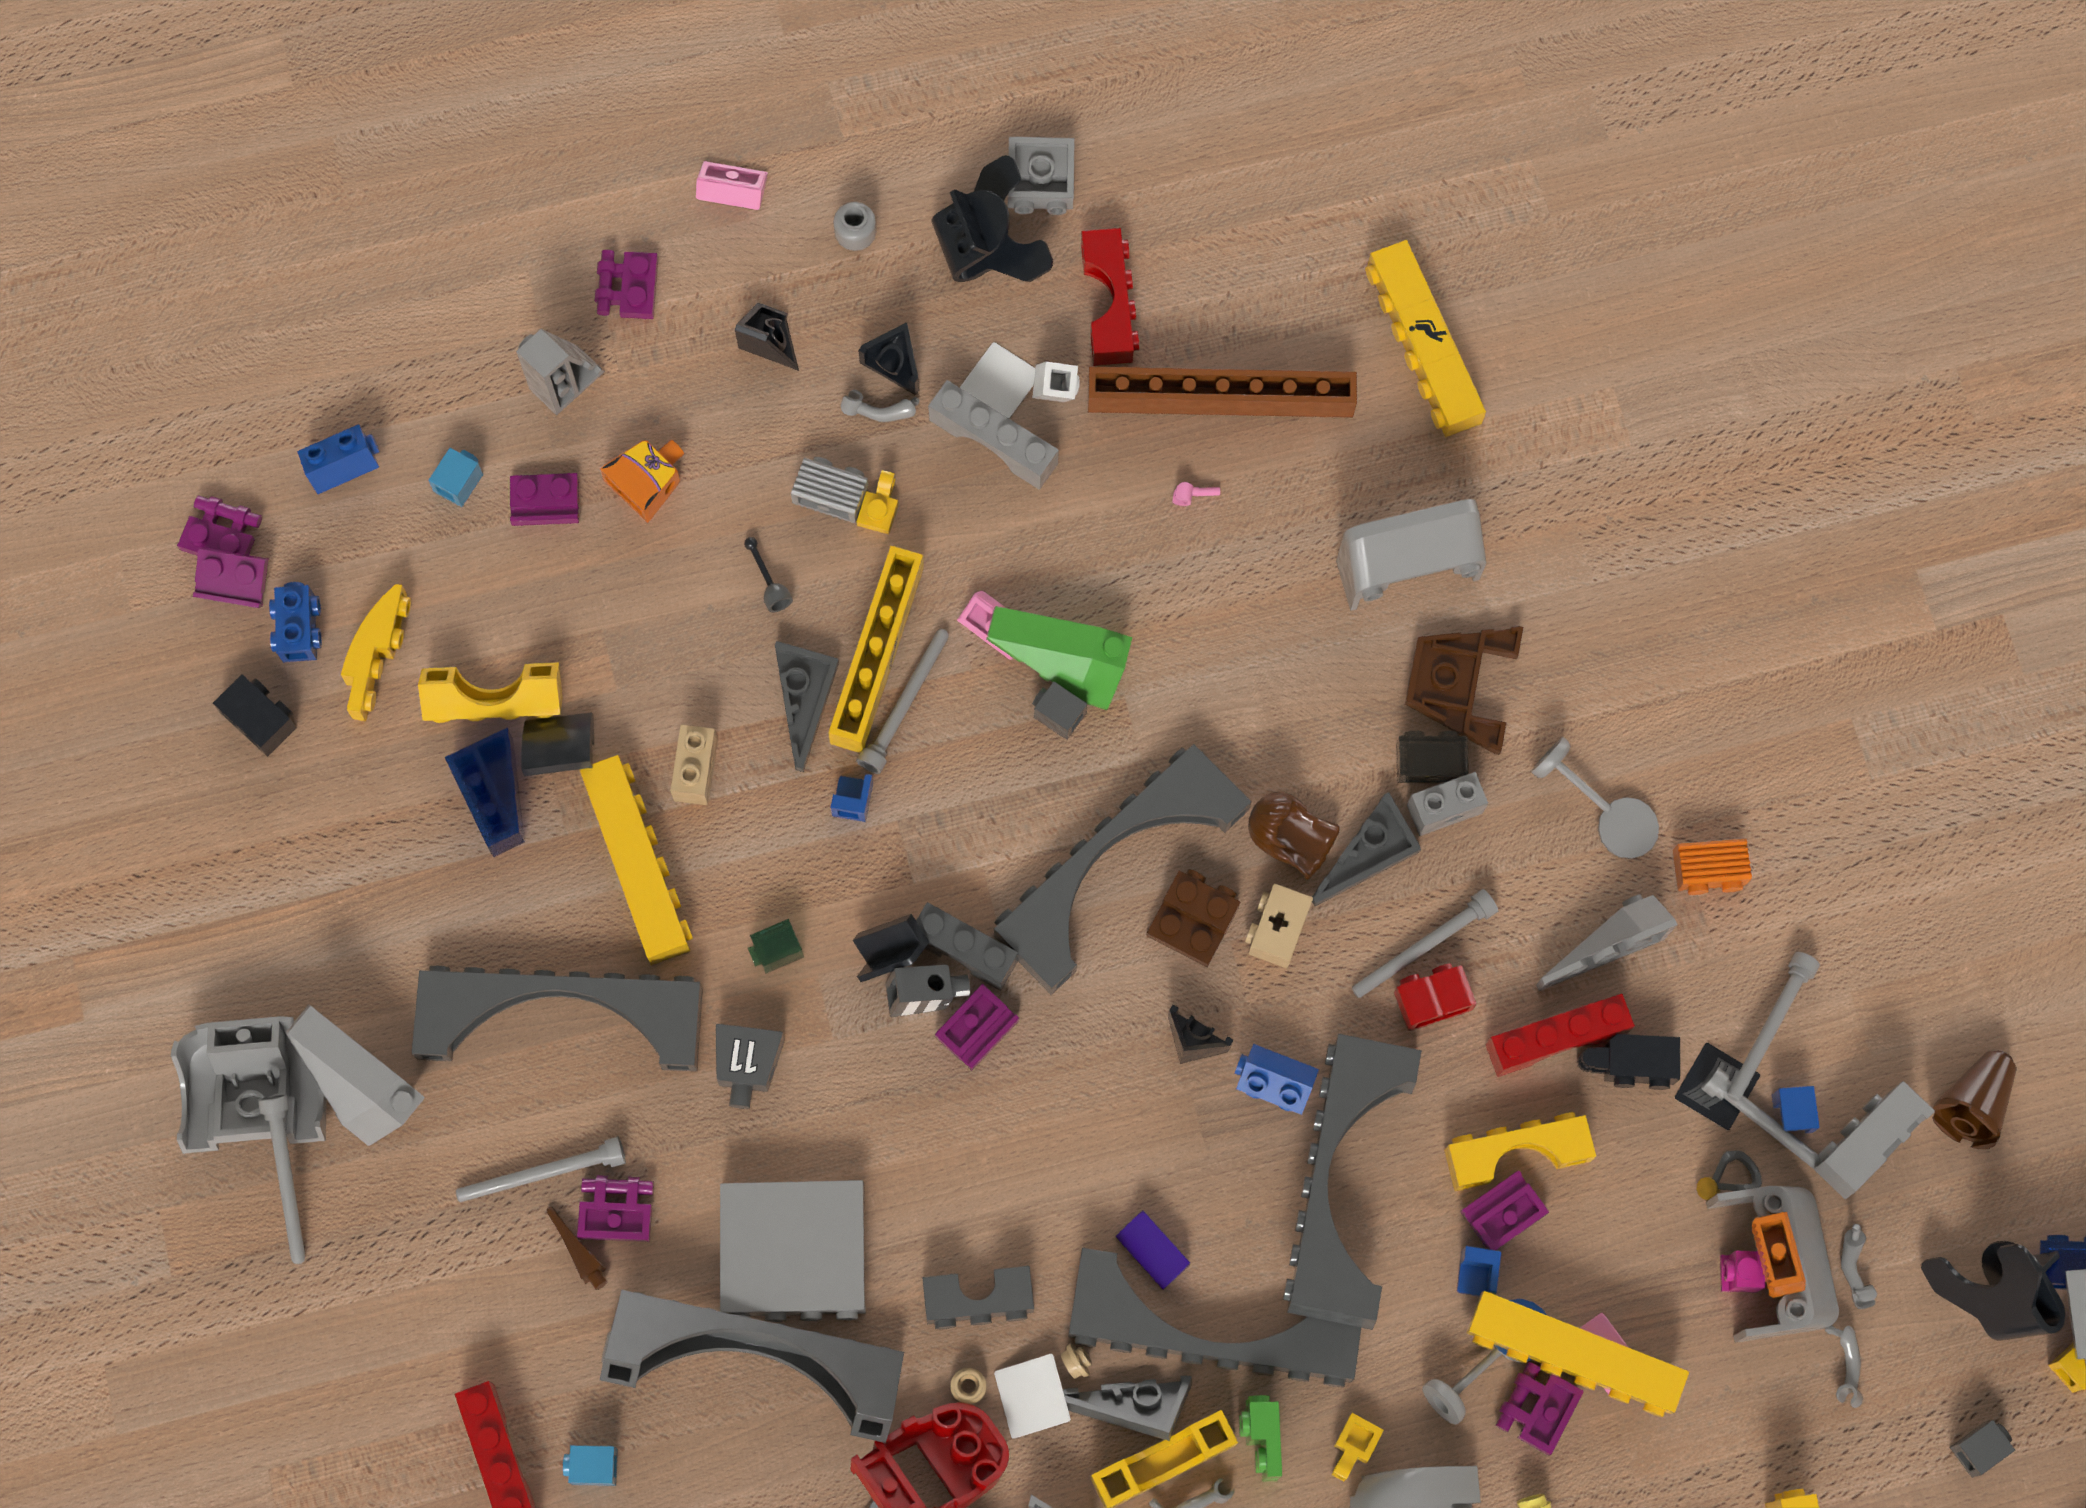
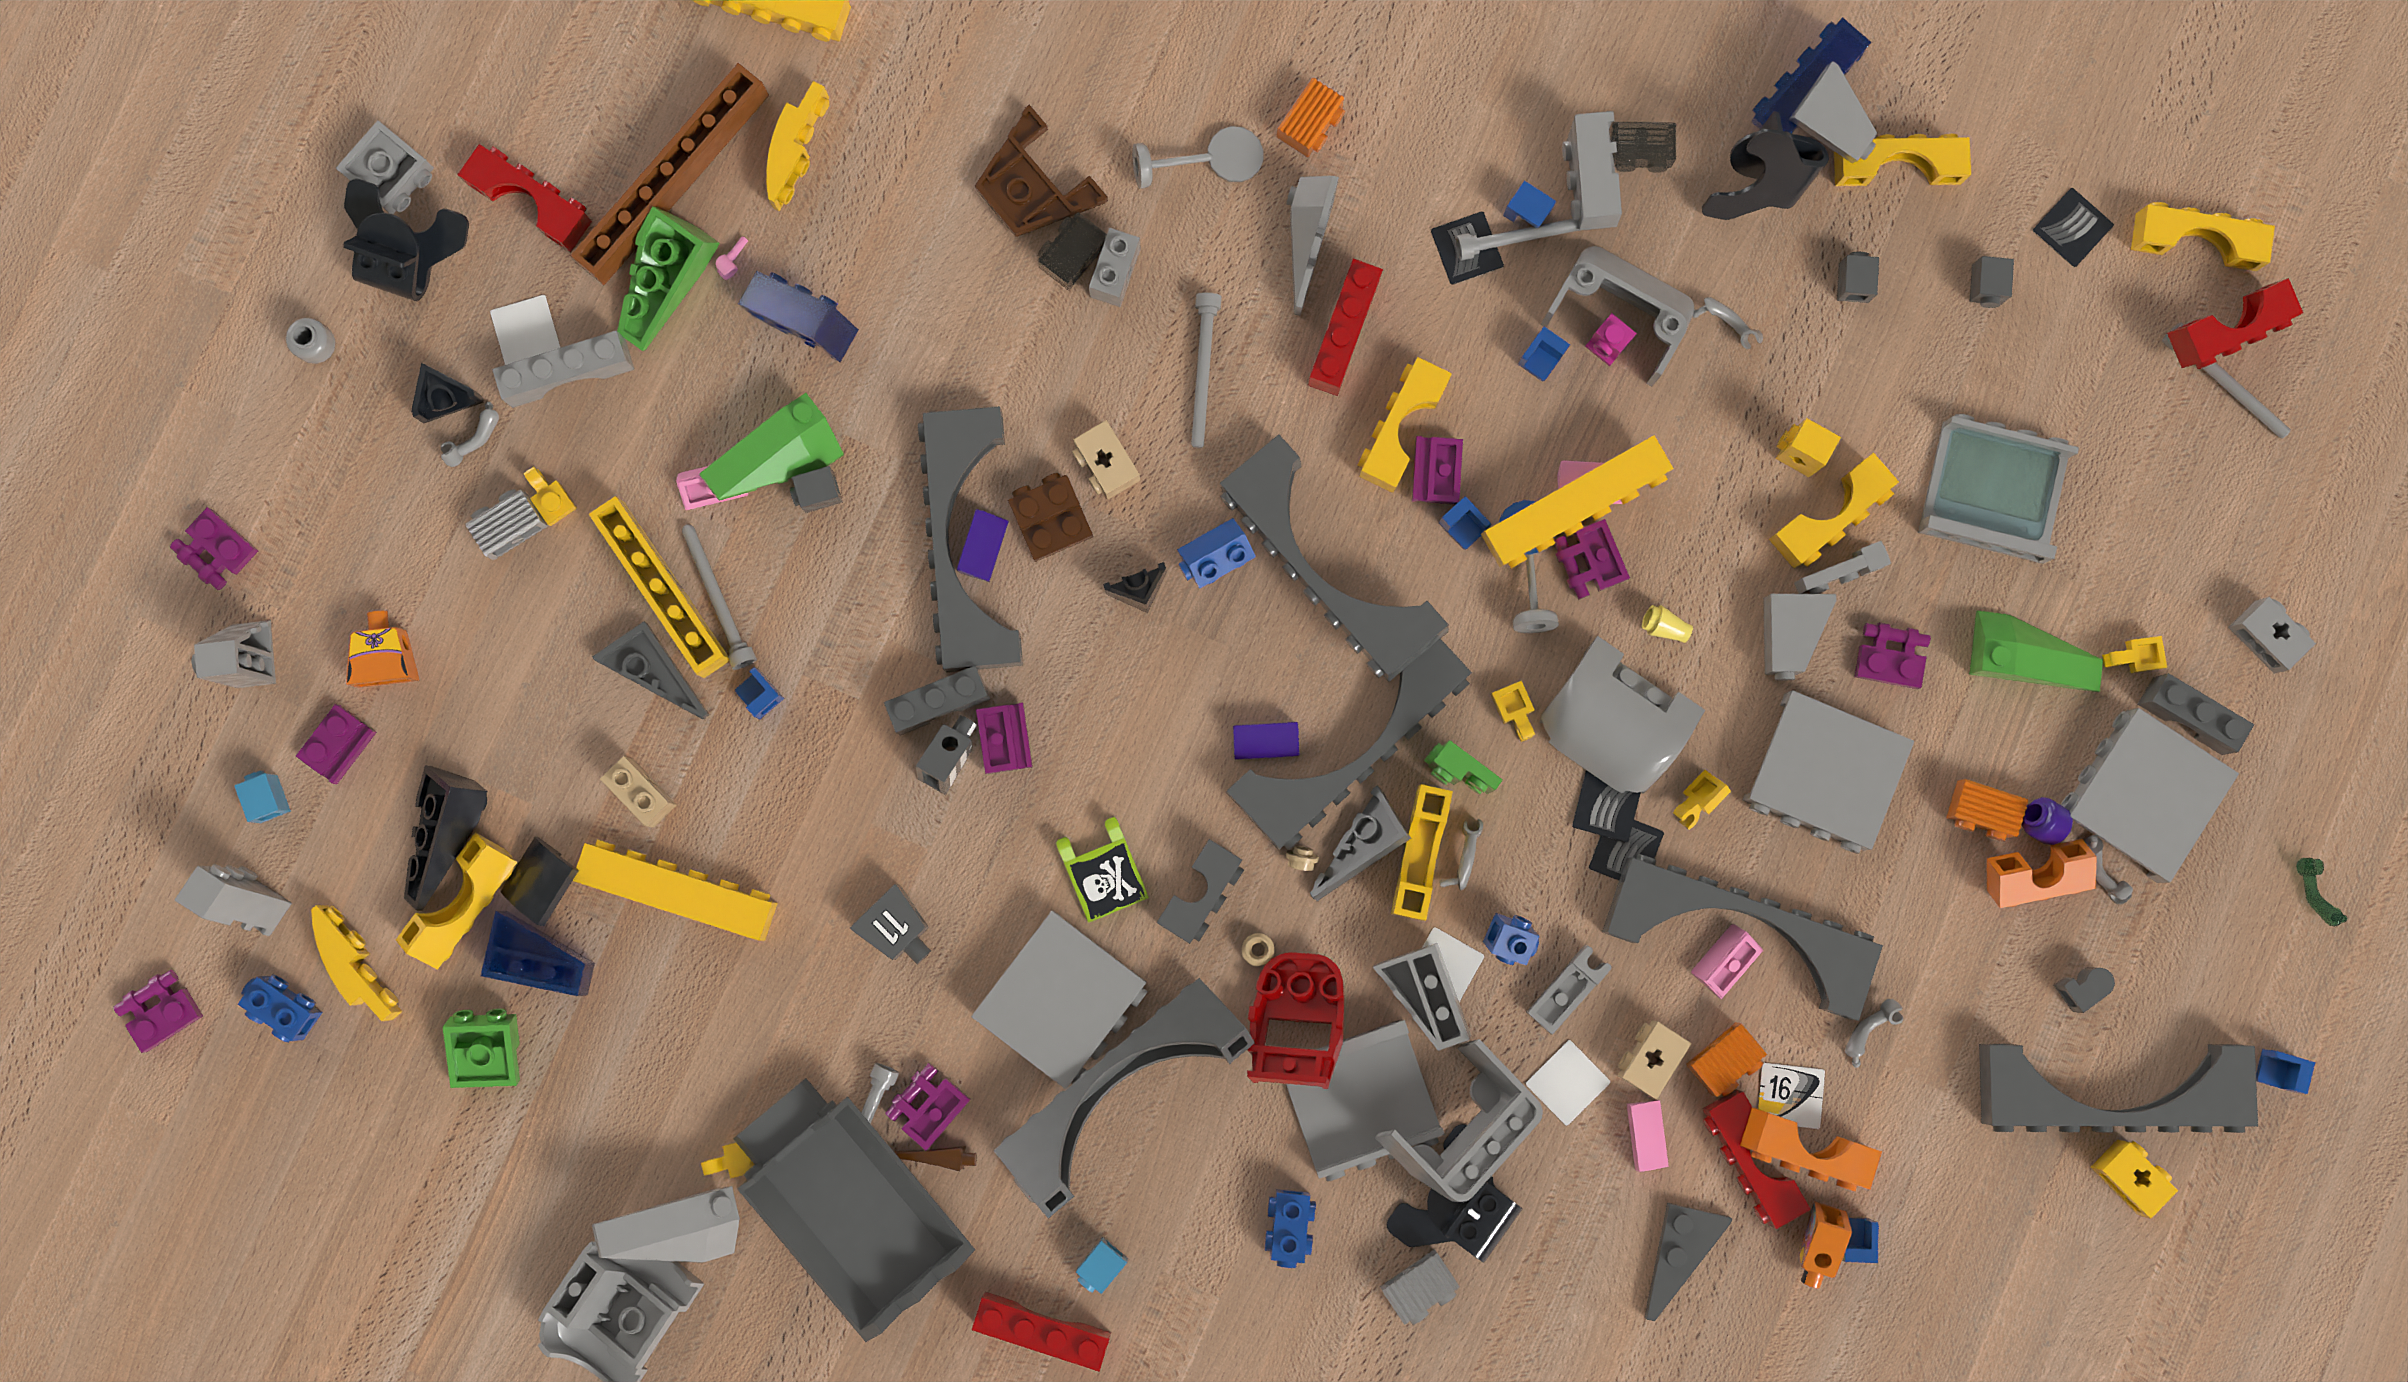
camera: 50 degrees left, 10 degrees up
(230, 577) = (201, 1030): magenta plate -> none
(255, 714) = (328, 1093): black brick -> none
(274, 1110) = (651, 1308): light grey piece -> none
(339, 458) = (168, 873): blue brick -> none
(361, 515) = (231, 895): none -> light grey wedge
(384, 807) = (482, 1049): none -> bright green plate
(450, 1088) = (734, 1160): none -> yellow plate
(459, 1002) = (680, 1107): dark grey arch -> none
(479, 1209) = (847, 1208): none -> dark grey panel
(551, 633) = (448, 816): none -> black wedge
(731, 185) = (198, 408): bright pink slope -> none
(767, 335) = (342, 475): black slope -> none
(775, 946) = (825, 839): clear green brick -> none
(776, 595) = (556, 629): dark grey hinge -> none
(890, 946) = (895, 755): black panel -> none
(927, 1205) = (1105, 876): none -> flag
(1032, 1396) = (1301, 909): white sticker -> none
(1055, 382) = (560, 289): white brick -> none
(1124, 881) = (982, 545): none -> dark purple slope
(1143, 448) = (665, 268): none -> bright green wedge
(1193, 582) = (799, 313): none -> clear blue wedge
(1291, 833) = (1045, 397): reddish brown piece -> none
(1315, 469) = (786, 154): none -> yellow slope
(1376, 847) = (1104, 342): dark grey wing -> none
(1411, 547) = (906, 134): light grey windscreen -> none
(1434, 997) = (1246, 393): red brick -> none
(1634, 1060) = (1404, 289): black hinge -> none
(1681, 1223) = (1543, 354): none -> blue panel
(1710, 1186) = (1534, 312): dark grey piece -> none
(1778, 1254) = (1626, 304): orange brick -> none
(1801, 970) = (1434, 118): light grey piece -> none
(1853, 1243) = (1649, 246): light grey piece -> none
(1932, 1165) = (1643, 145): none -> clear smoke brick
(1978, 1101) = (1625, 76): reddish brown cone -> none

